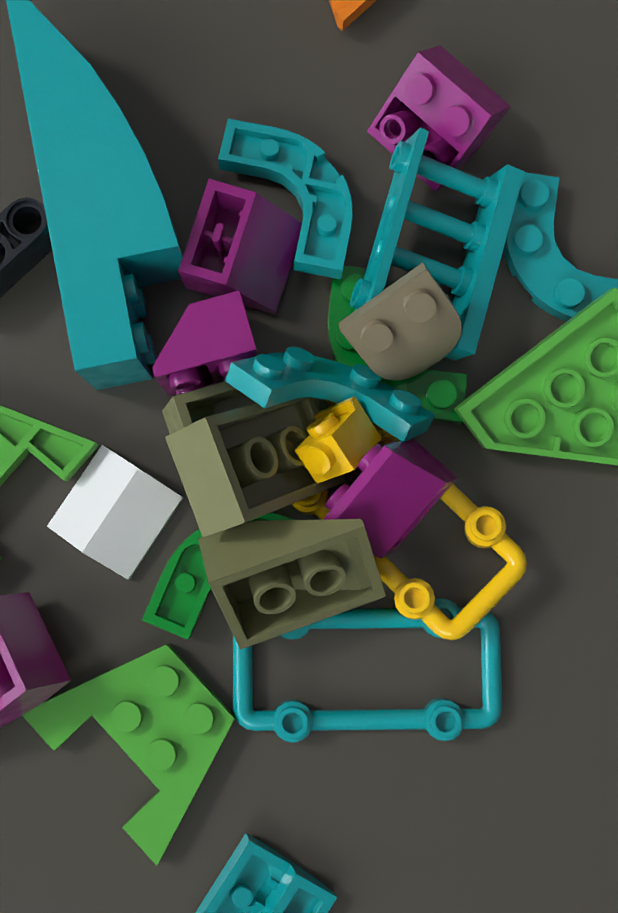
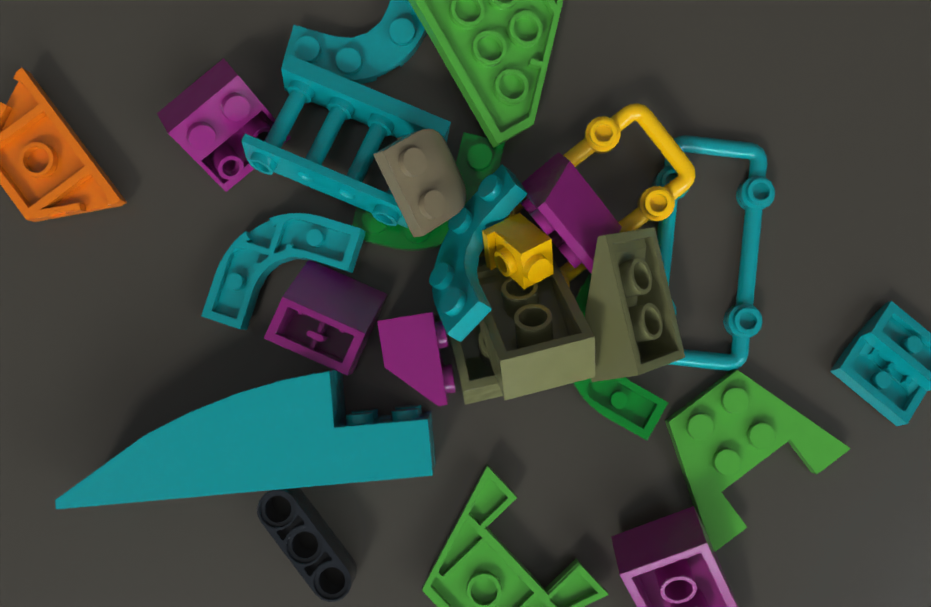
camera: 85 degrees left, 5 degrees up
(115, 512) = (547, 456): white slope -> none

